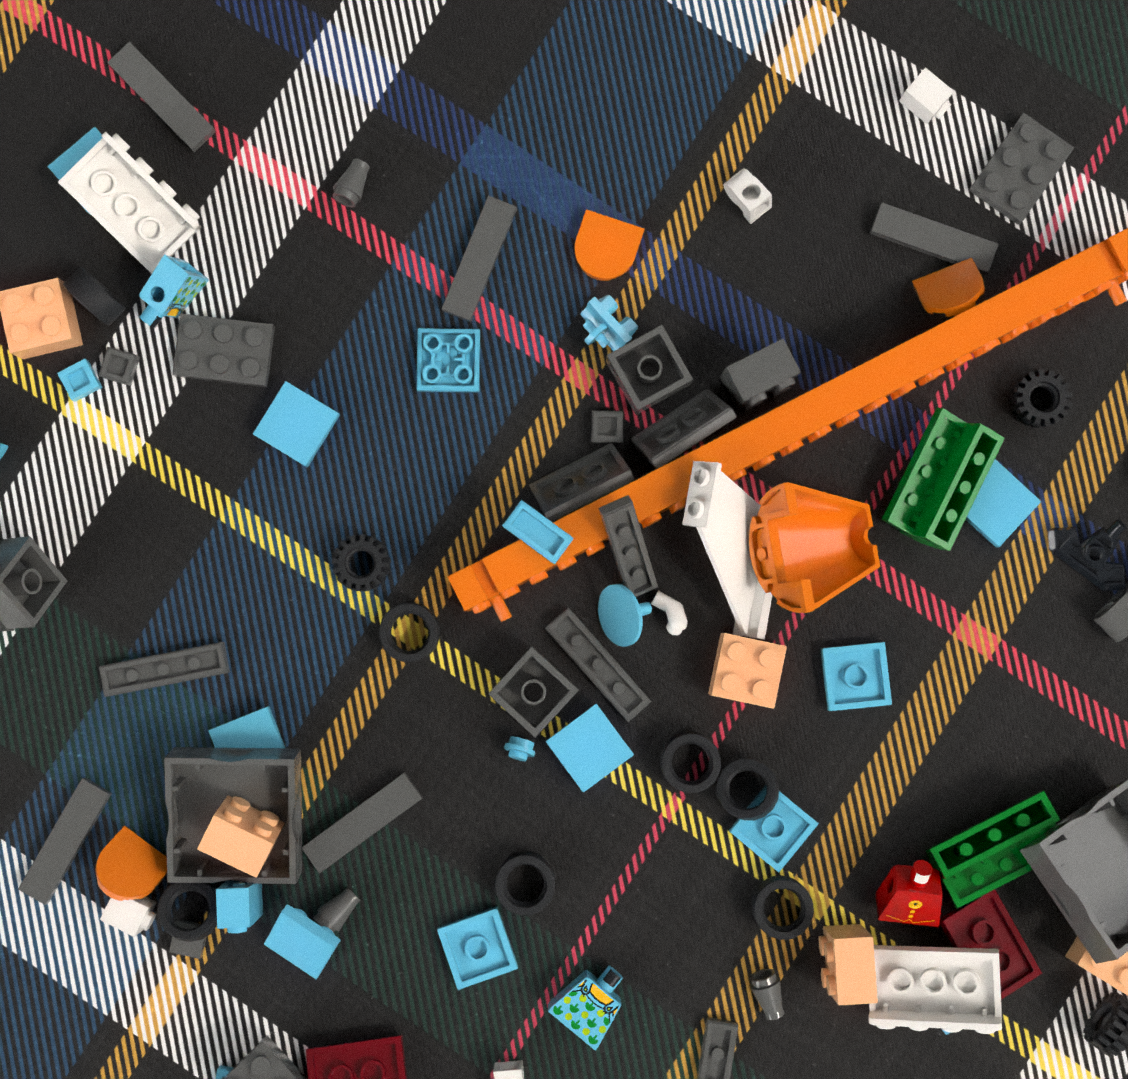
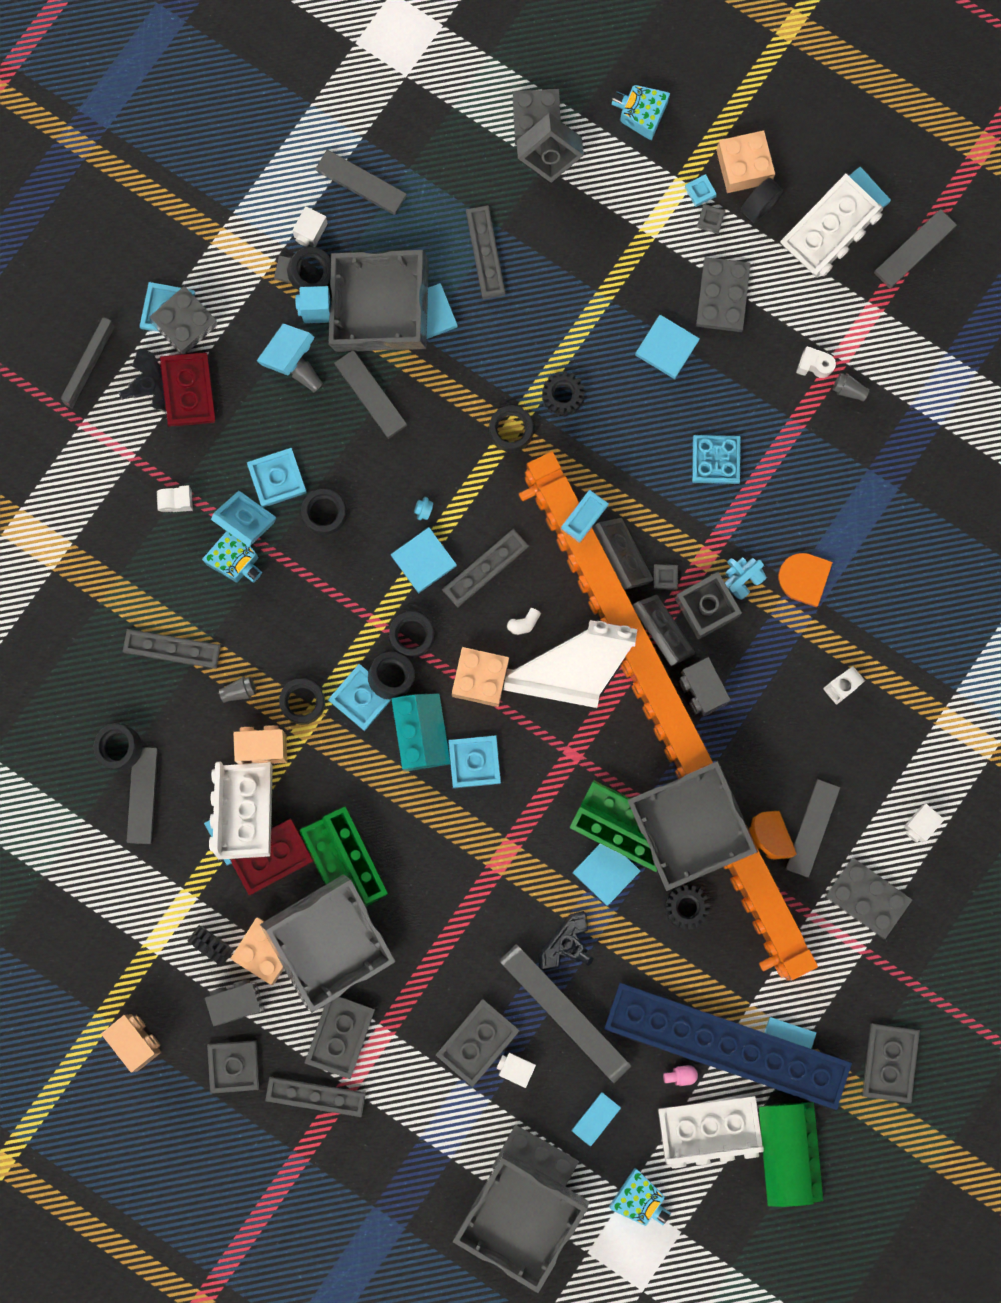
camera: 90 degrees right, 5 degrees down
(129, 867) = (342, 227): orange tile -> none
(170, 289) = (767, 255): medium azure torso -> none
(241, 835) = (365, 305): light nougat brick -> none
(316, 226) = (816, 361): none -> white leg
(479, 258) = (794, 482): dark grey tile -> none
(533, 691) = (466, 517): dark grey brick -> none
(537, 994) = (243, 518): none -> medium azure tile
(621, 614) = (521, 583): medium azure shield -> none
(628, 545) = (573, 584): dark grey tile -> none
(810, 545) = (574, 722): orange cone -> none
(820, 748) = (420, 731): none -> teal slope
(911, 895) = (310, 796): red torso -> none
(956, 387) = (692, 826): none -> dark grey tile

